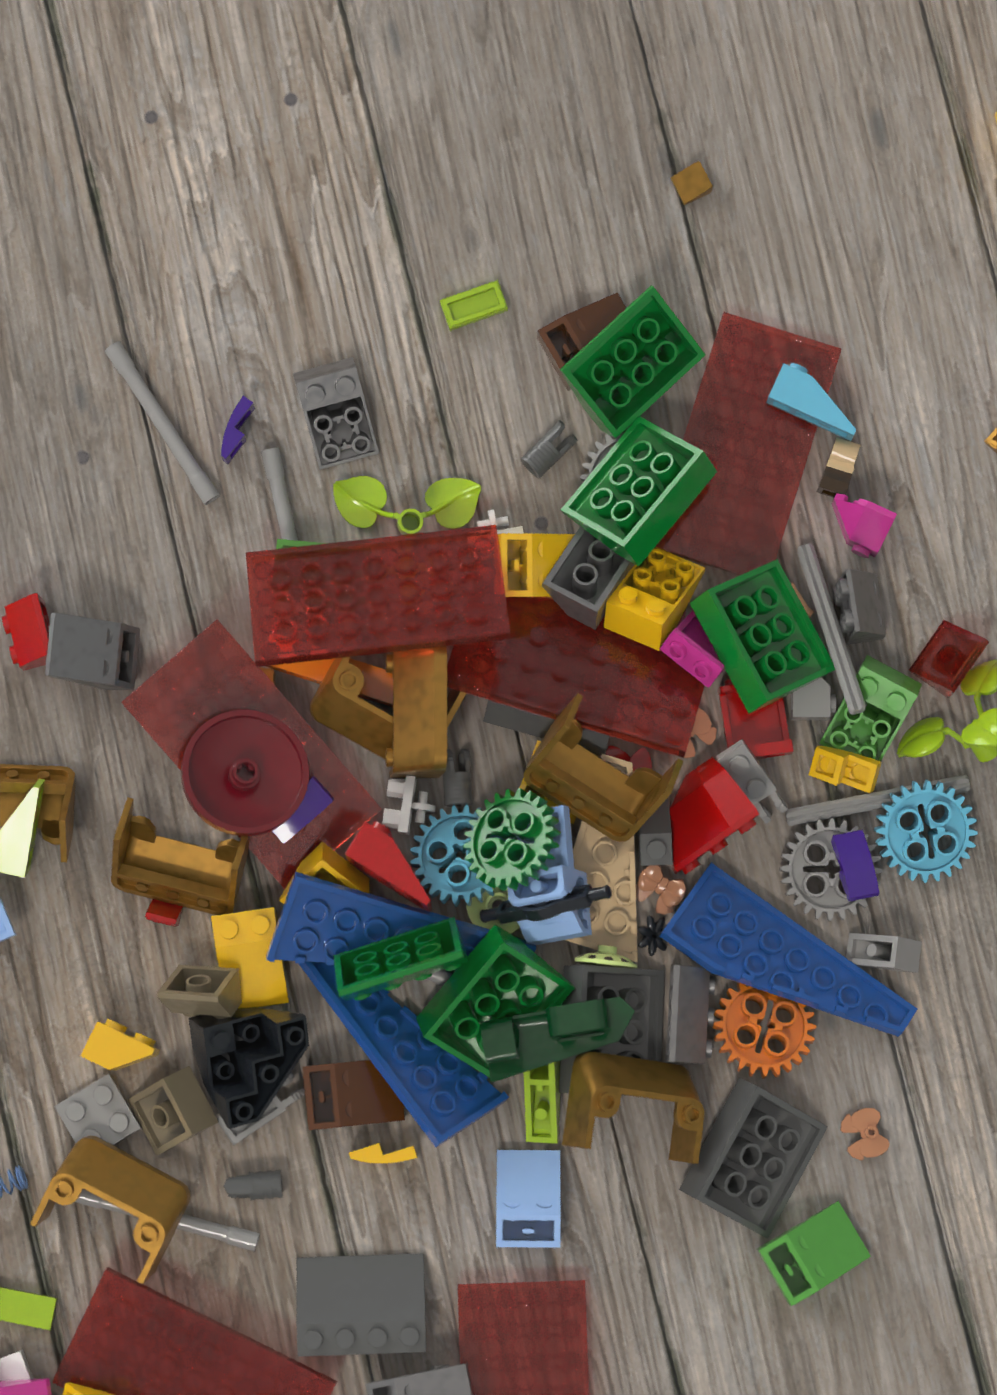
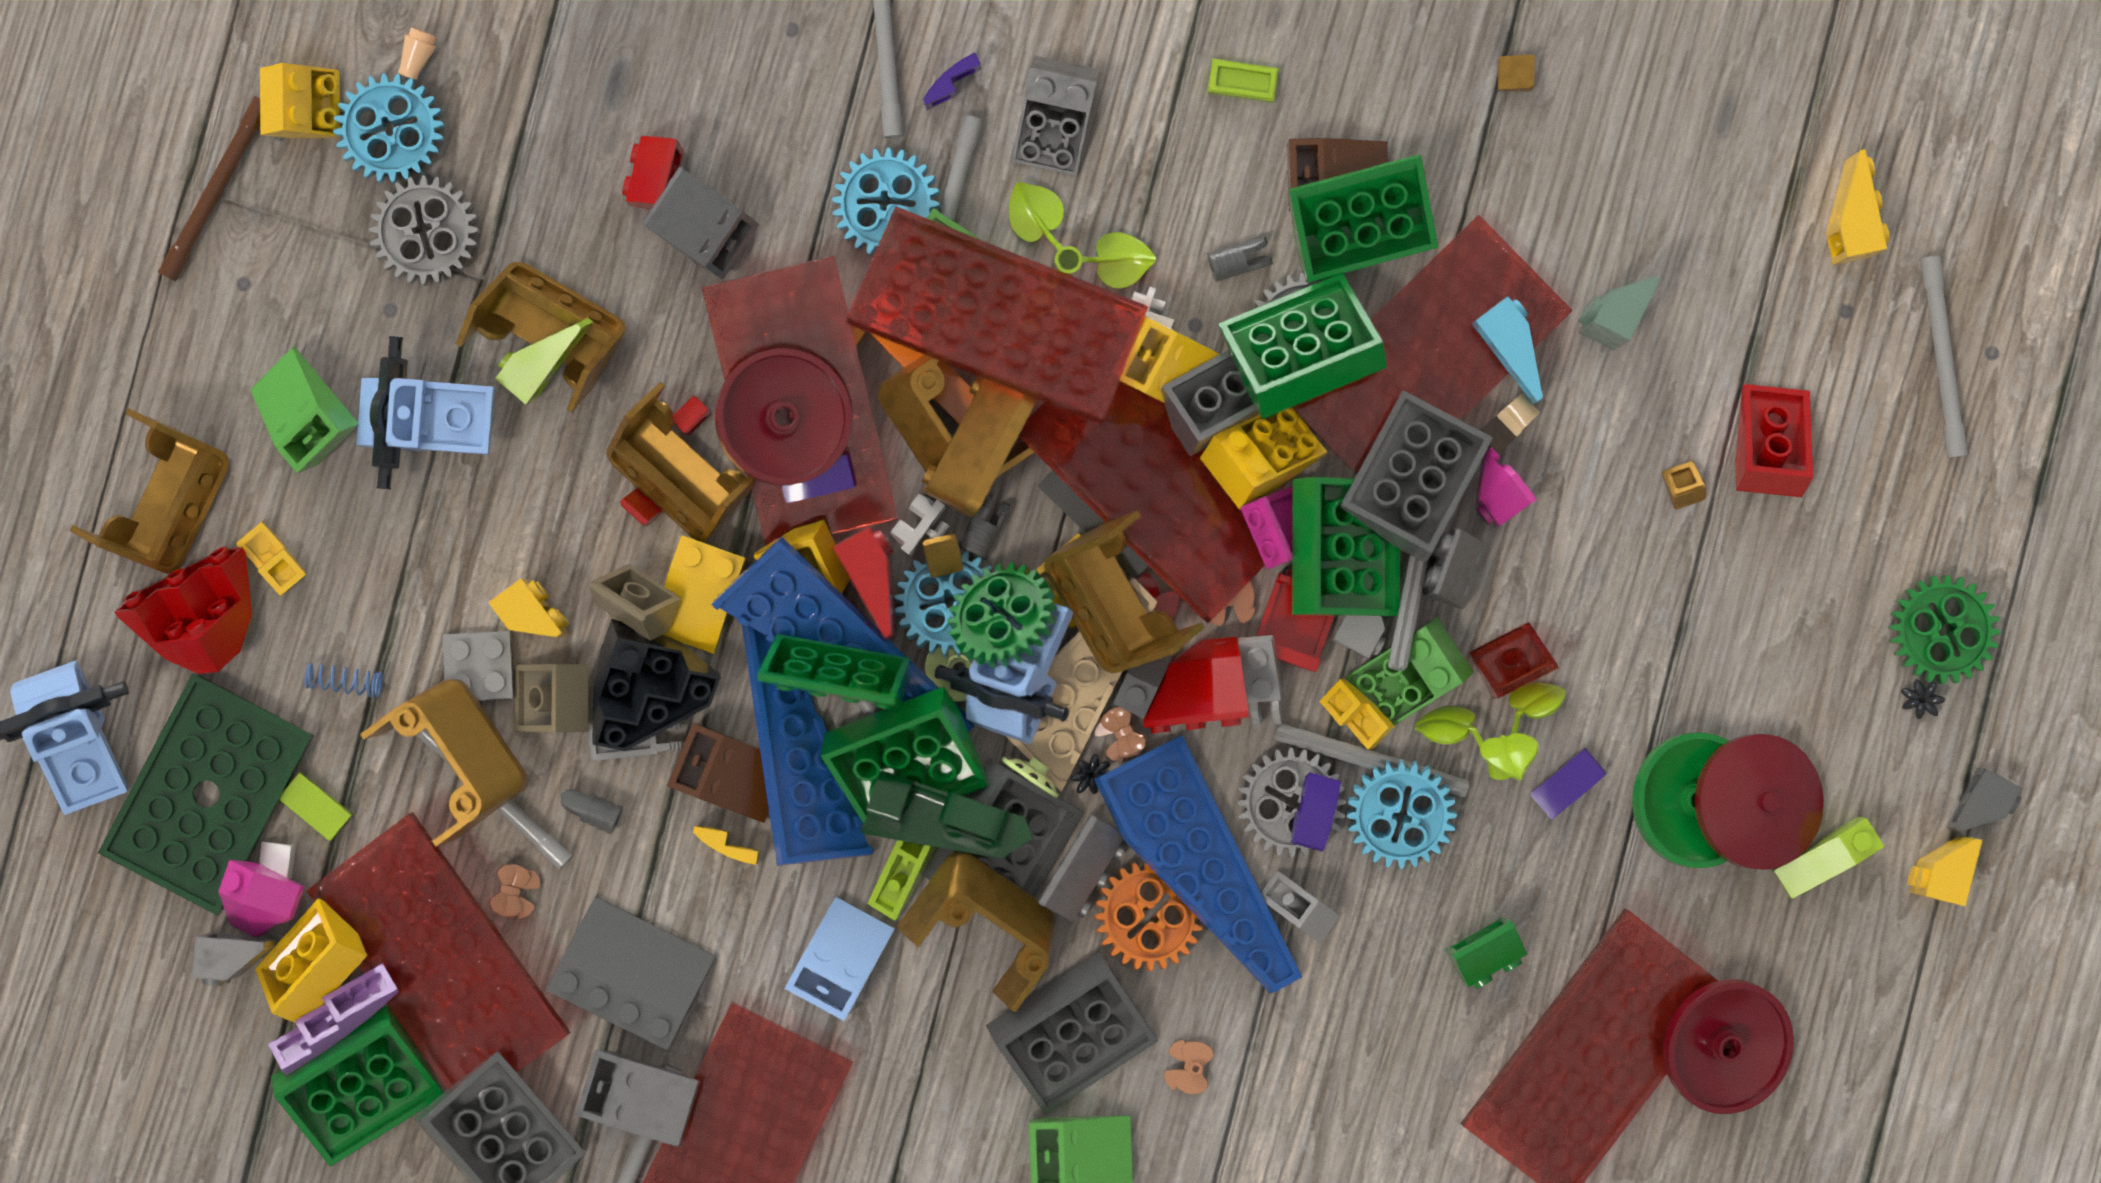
camera: 25 degrees right, 5 degrees up
(166, 815) = (691, 415): none -> red slope
(224, 1300) = (508, 901): none -> nougat piece
(225, 530) = (889, 172): none -> medium azure gear
(435, 818) = (942, 555): none -> pearl gold slope
(788, 547) = (1415, 475): none -> dark grey slope
(880, 330) = (1617, 313): none -> sand green slope

